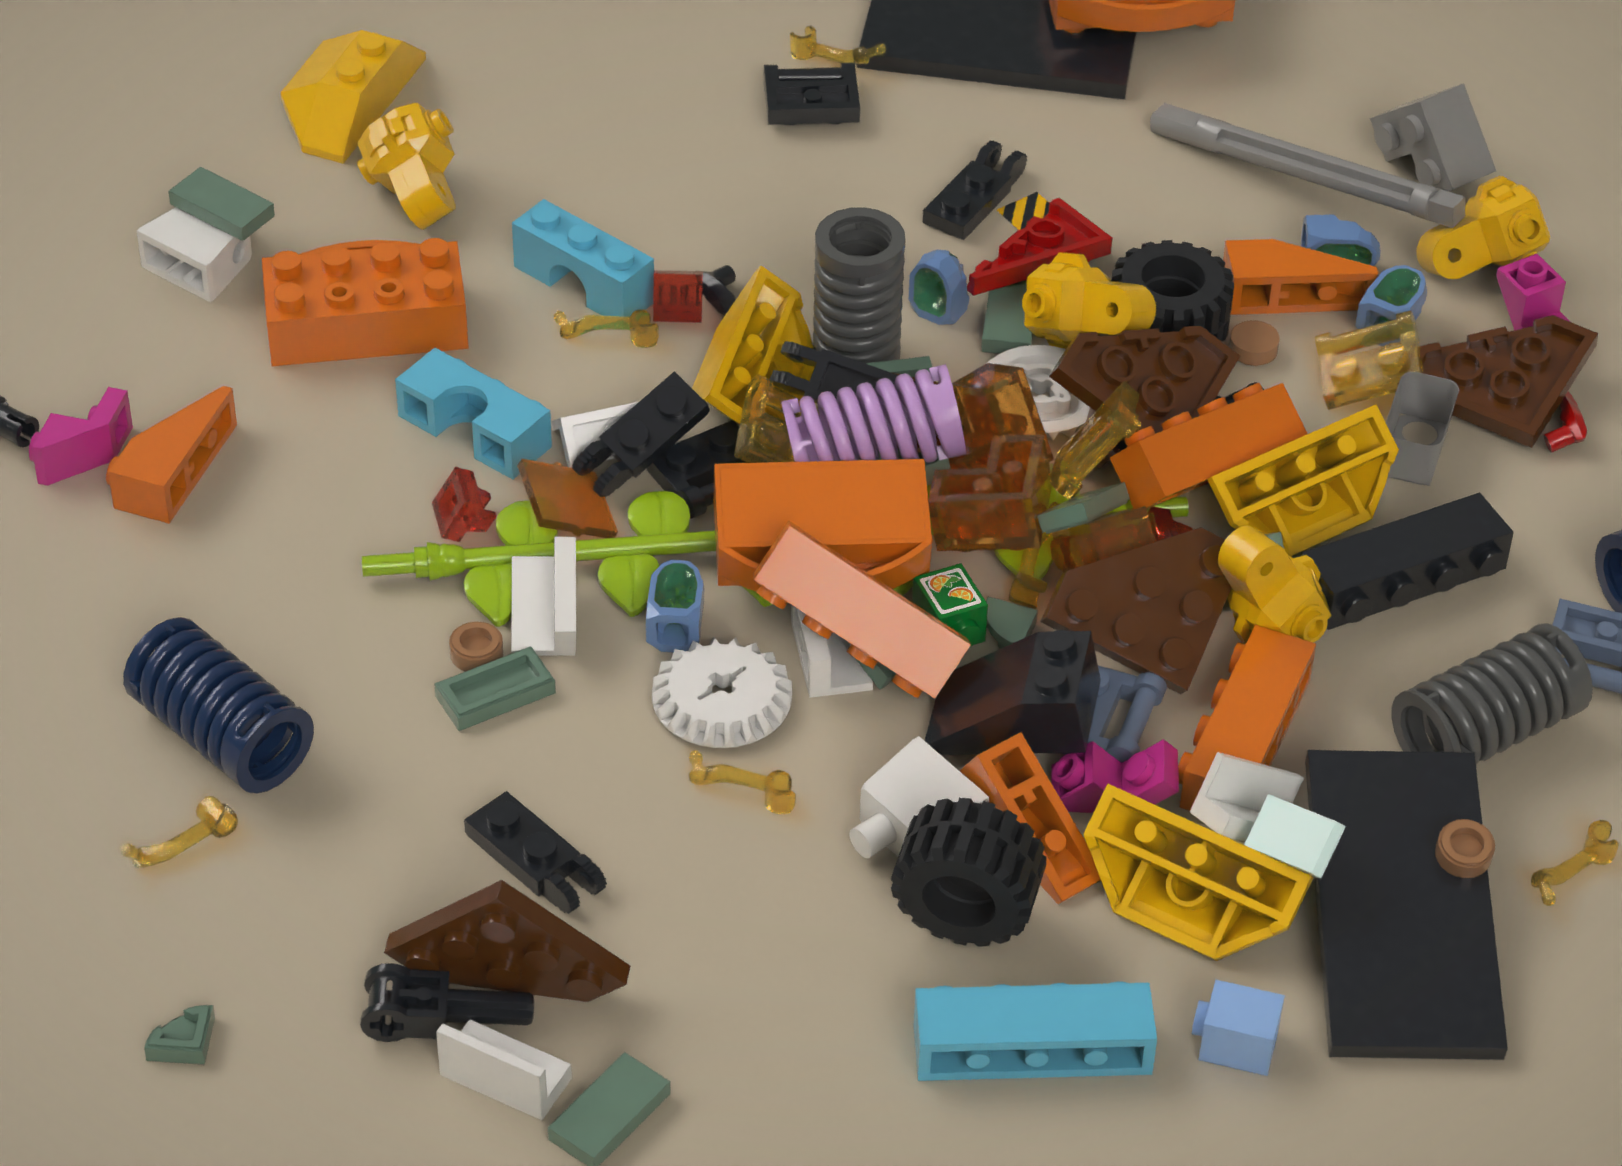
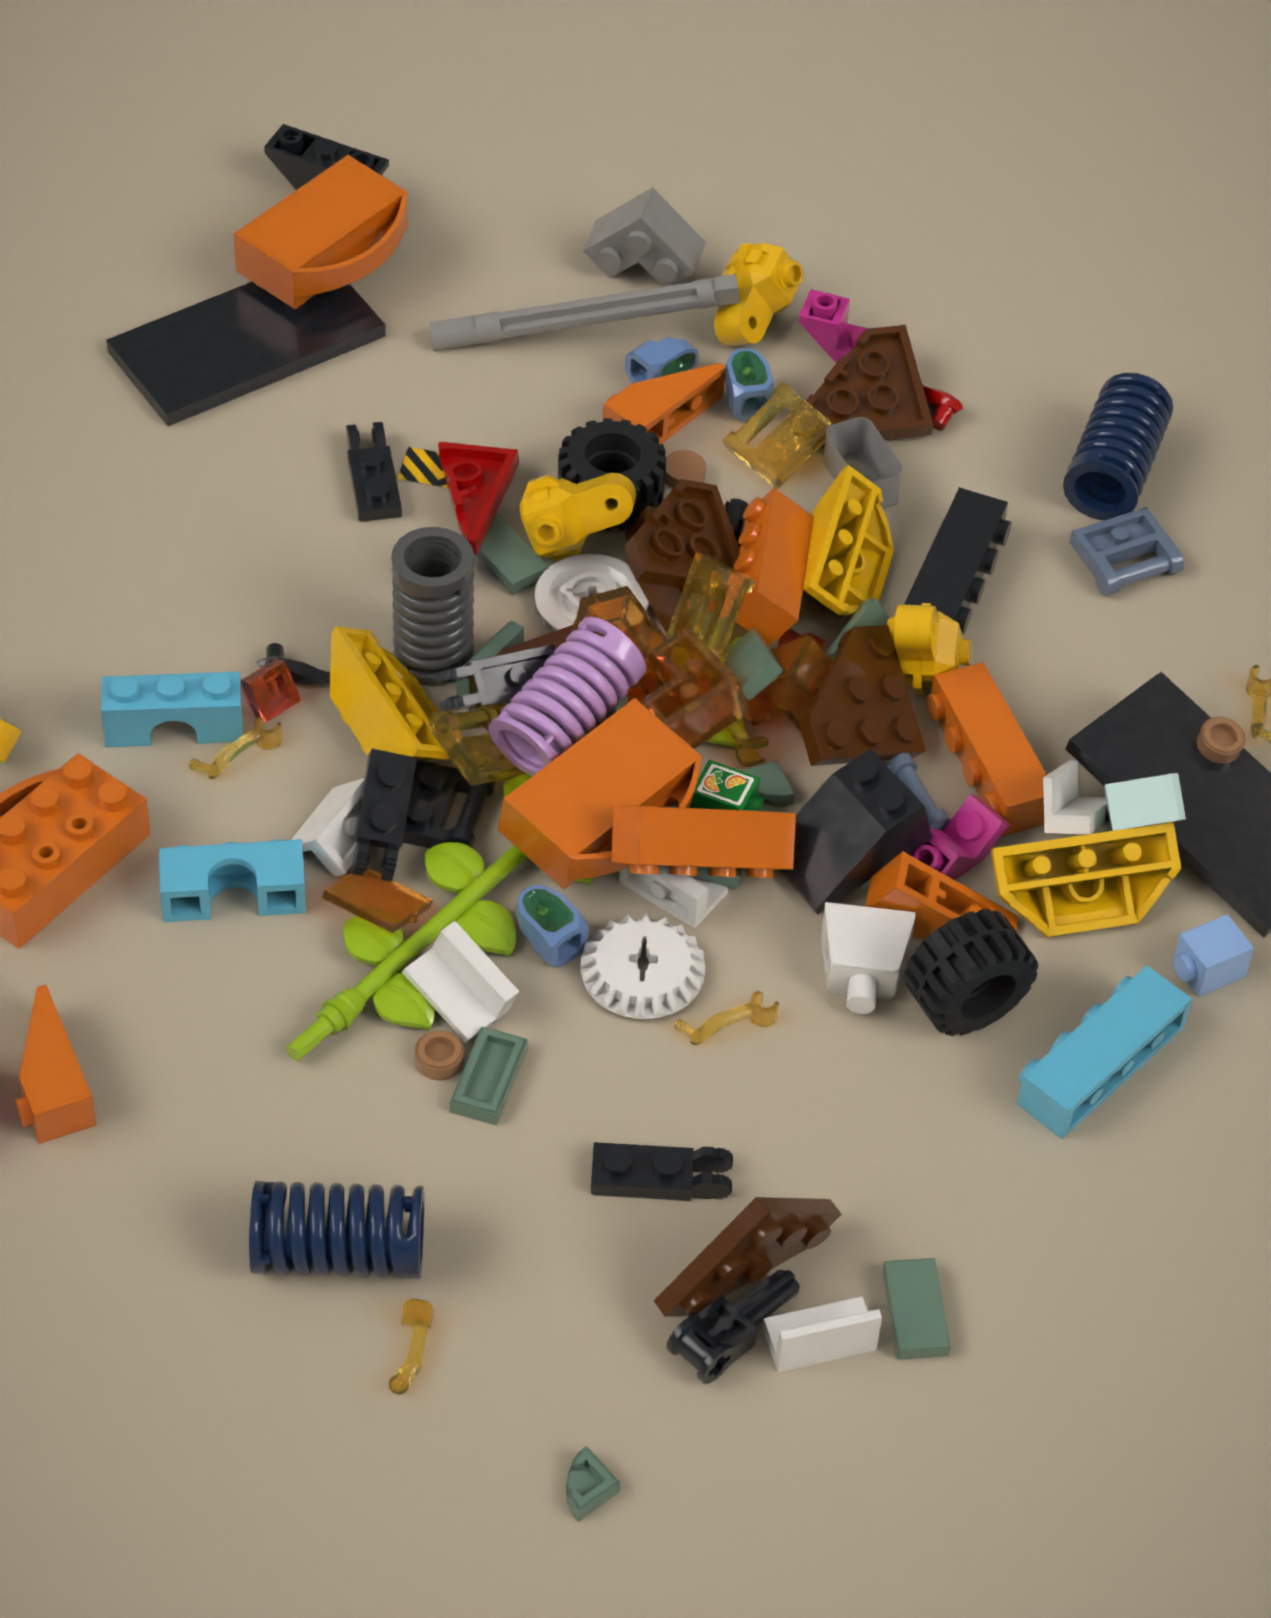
camera: 45 degrees left, 5 degrees up
(461, 506) = (308, 958): clear red tile -> none
(807, 47) = (117, 431): clear yellow piece -> none
(811, 95) = (176, 474): black plate -> none
(1496, 696) = (1119, 628): dark grey piece -> none

